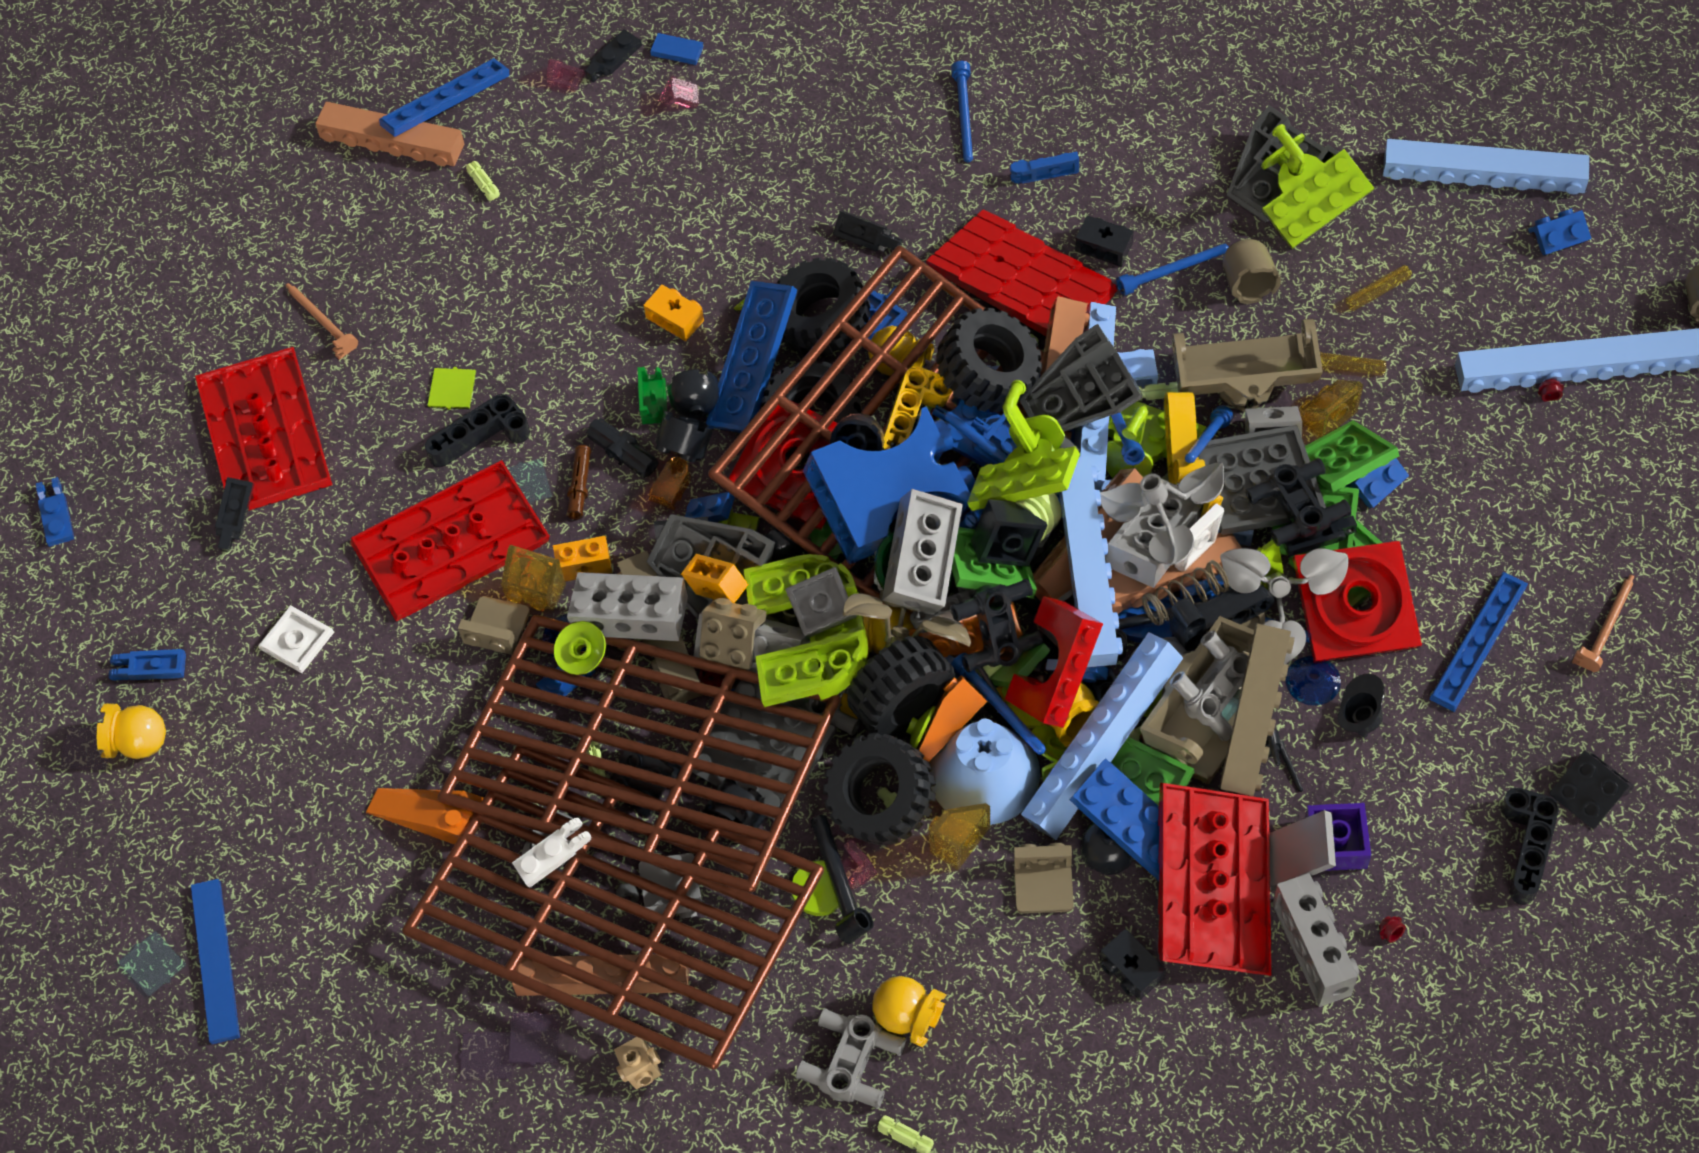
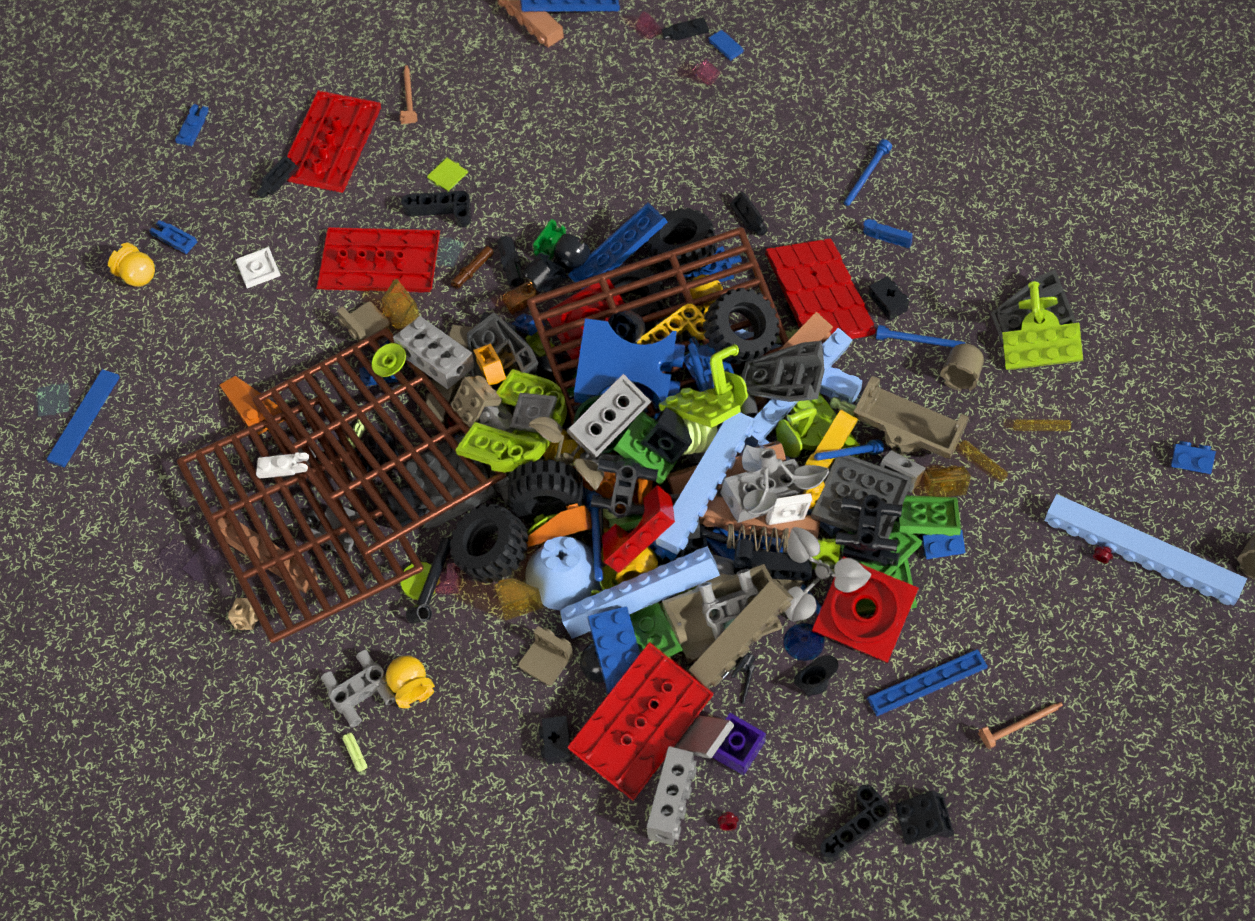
camera: 35 degrees right, 0 degrees up
(482, 180) = (555, 64): yellowish green axle -> none
(584, 557) = (438, 311): light orange brick -> none
(674, 312) = (600, 199): light orange brick -> none
(1131, 450) = (790, 432): blue piece -> none
(1486, 166) = (1176, 388): light blue brick -> none

